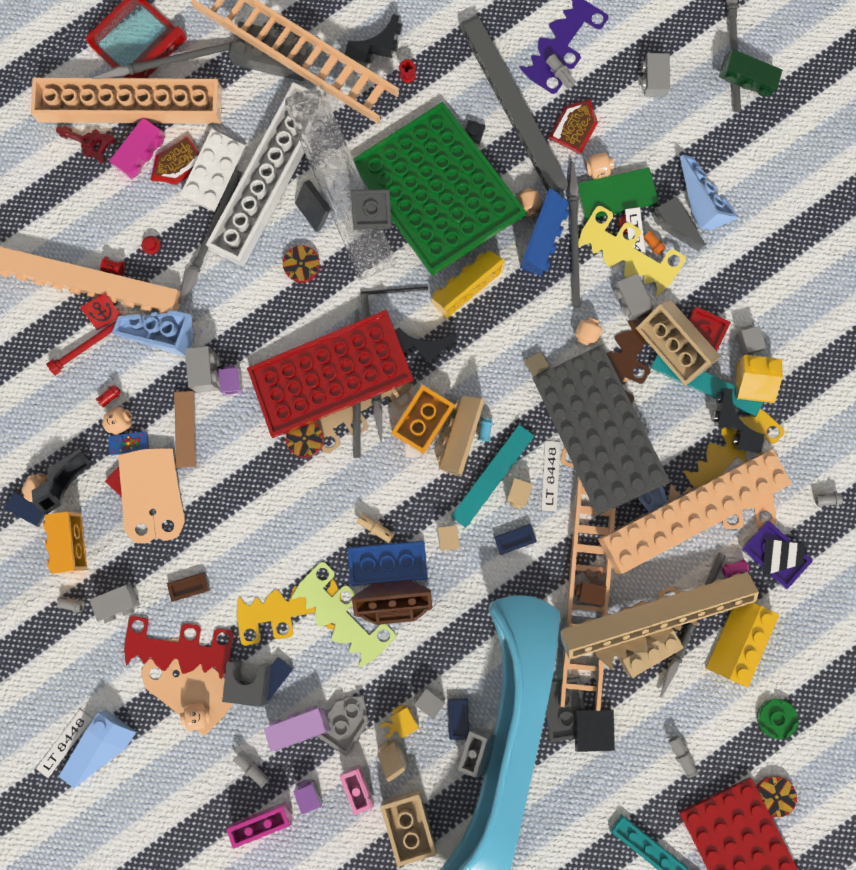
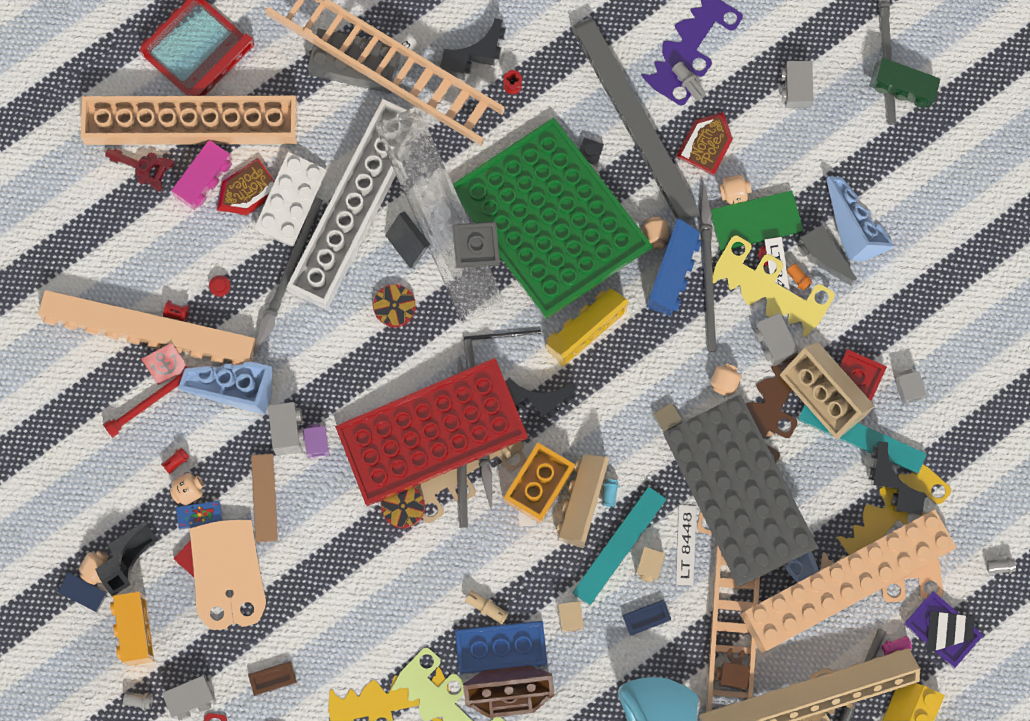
camera: 10 degrees left, 5 degrees down
(139, 67) = (204, 82): dark grey piece -> none
(758, 378) = (919, 430): yellow slope -> none

